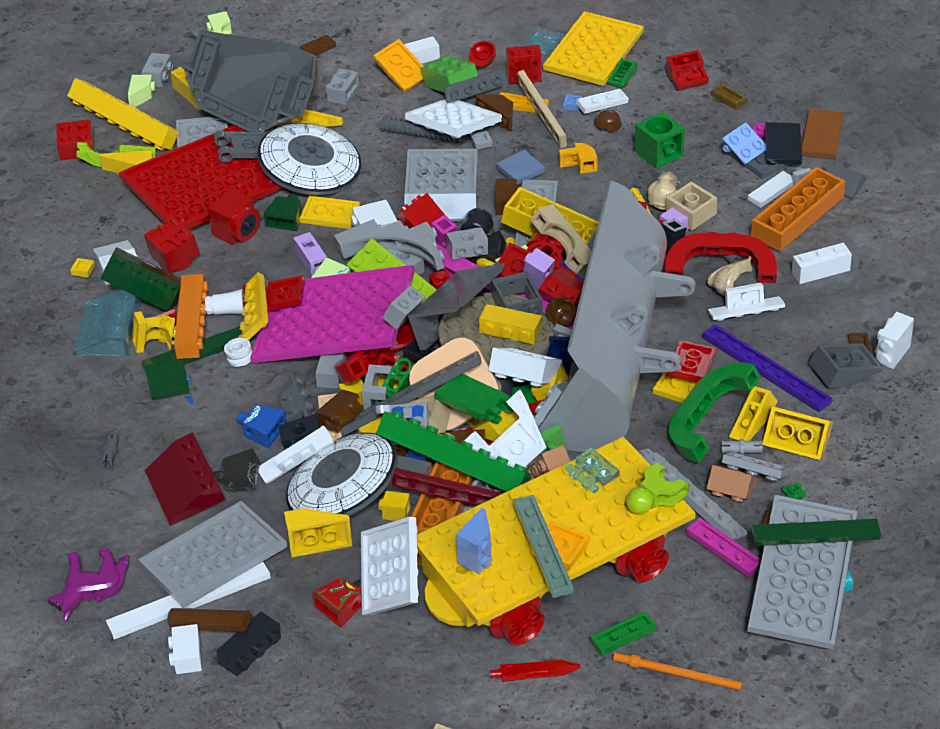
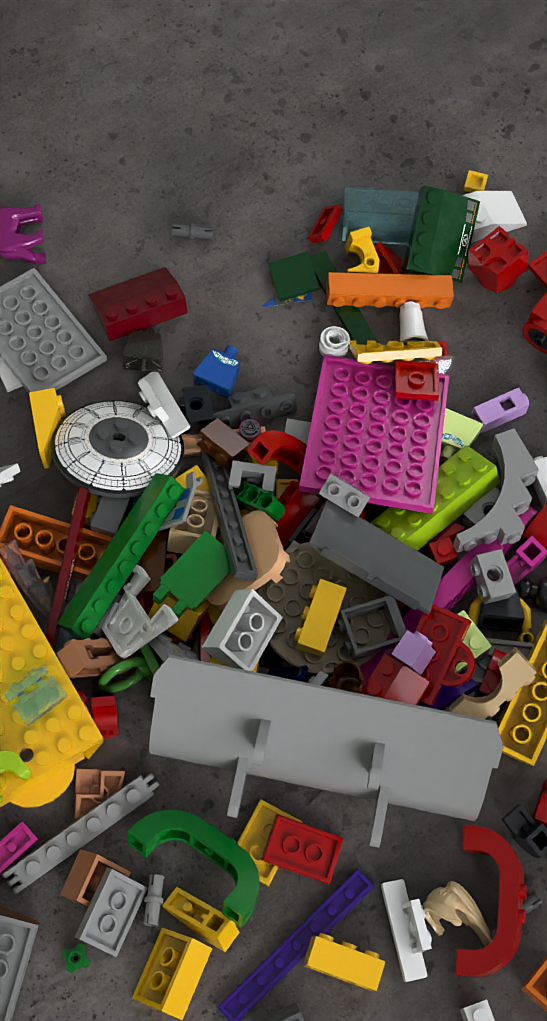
camera: 85 degrees right, 25 degrees up
(113, 360) = (325, 224): none -> red plate
(321, 398) = (249, 429): none -> tile
(776, 334) = (344, 962): none -> yellow brick

